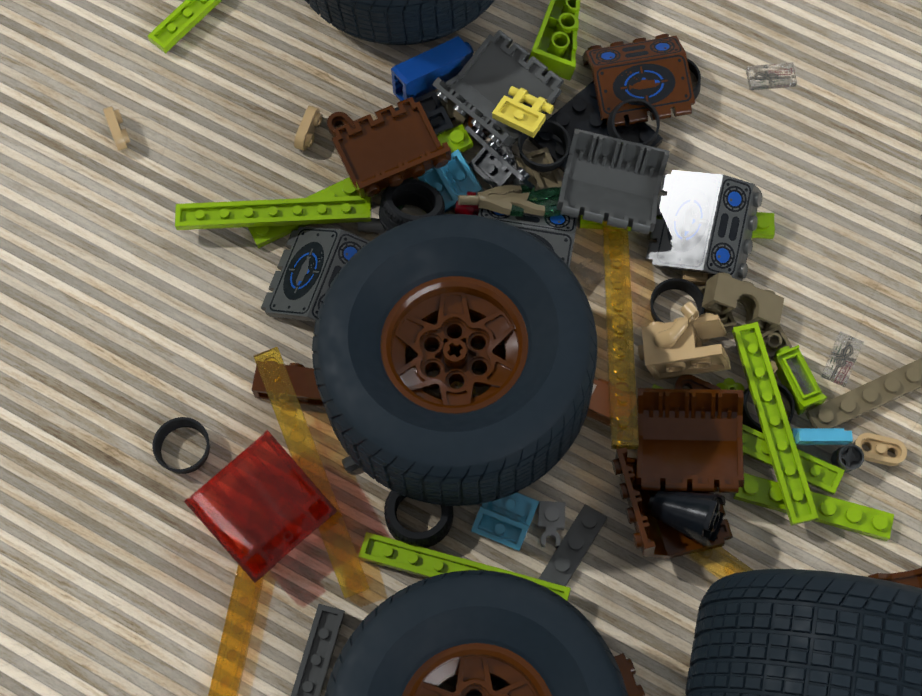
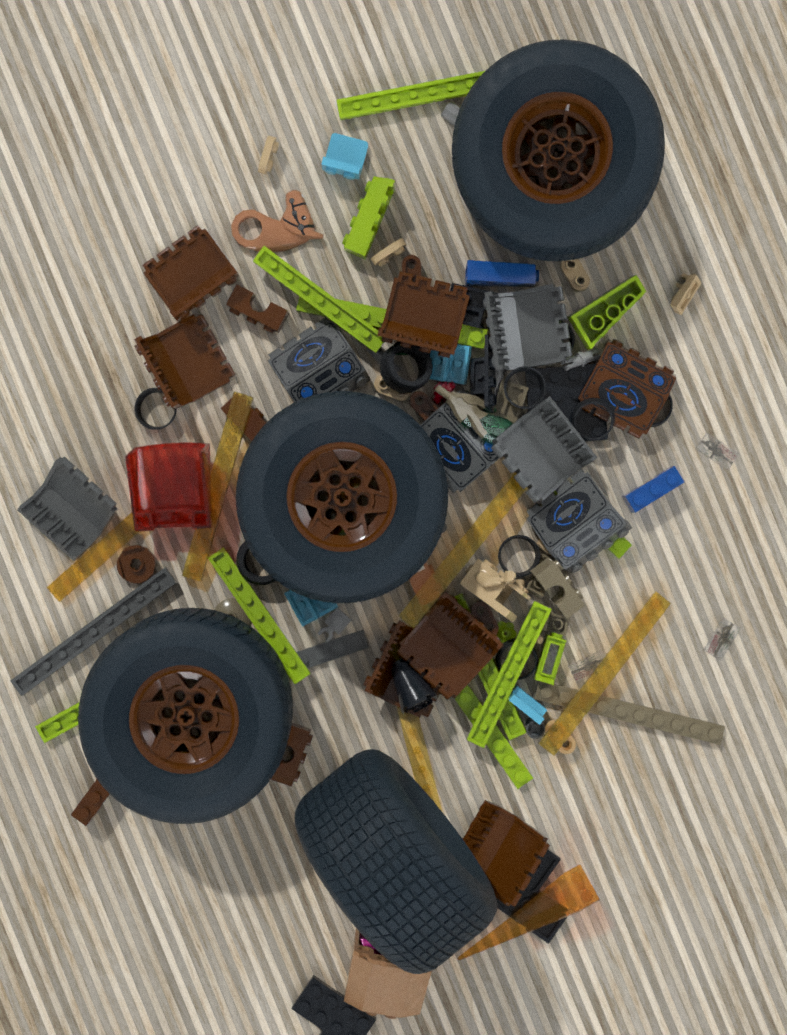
camera: 45 degrees right, 20 degrees up
(116, 288) = (190, 272): none -> reddish brown hinge
(162, 619) = (69, 509): none -> dark grey hinge
(179, 374) = (185, 361): none -> reddish brown hinge
(192, 183) = (290, 232): none -> nougat animal
(195, 78) = (345, 156): none -> medium azure bracket
(236, 271) = (241, 303): none -> reddish brown arch
(262, 109) = (369, 217): none -> lime wedge
(268, 627) = (147, 566): none -> reddish brown plate
(501, 22) = (574, 273): none -> tan plate
(519, 116) = (523, 359): light yellow plate -> none
(573, 87) = (581, 359): none -> light grey pin
(747, 145) = (653, 489): none -> blue arch
(865, 353) = (604, 673): none -> clear yellow plate

